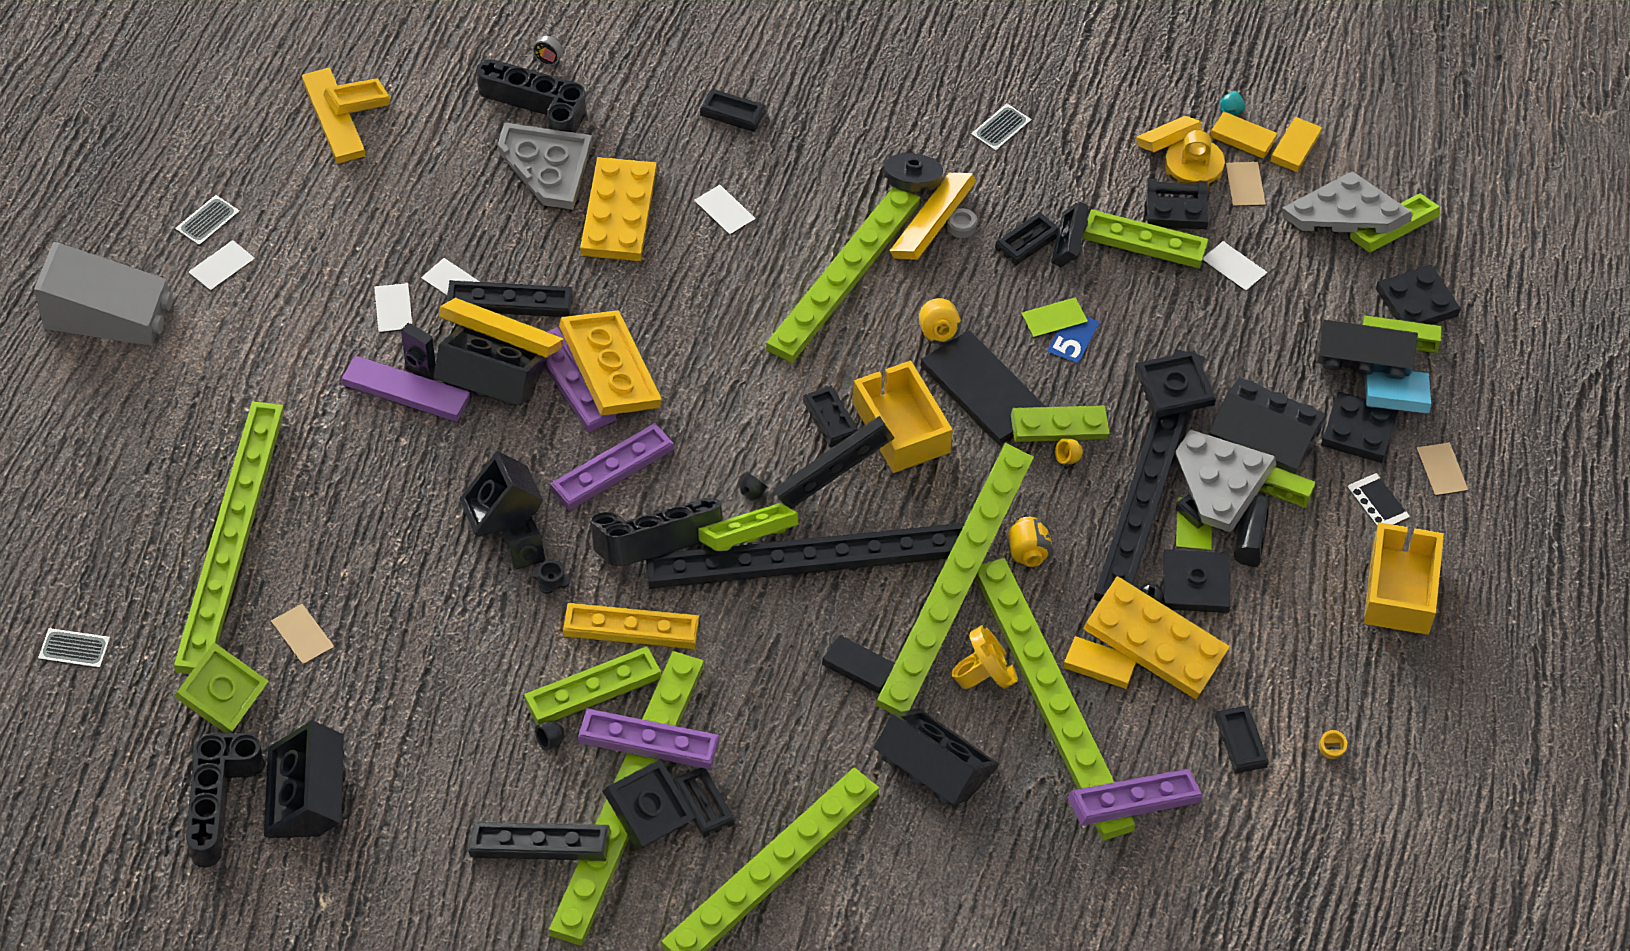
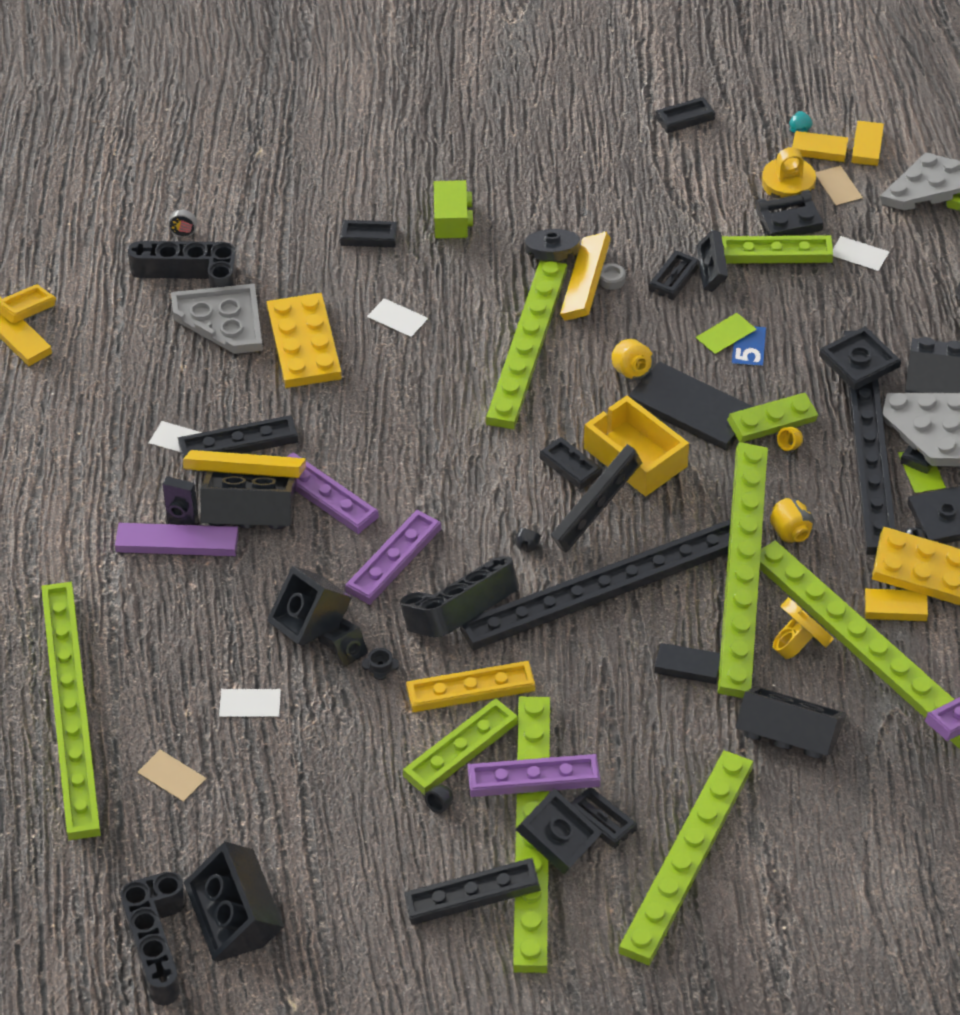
camera: 15 degrees left, 5 degrees down
(221, 688) = (121, 841): lime plate -> none
(392, 306) = (133, 474): white sticker -> none
(408, 580) = (250, 703): none -> white sticker
(610, 363) = (356, 468): yellow plate -> none
(748, 527) = (541, 573): lime plate -> none
(825, 106) = (450, 209): none -> lime brick
(1001, 126) = (609, 190): sticker -> none
(1116, 62) = (685, 115): none -> black tile
(1168, 134) = (757, 160): yellow tile -> none

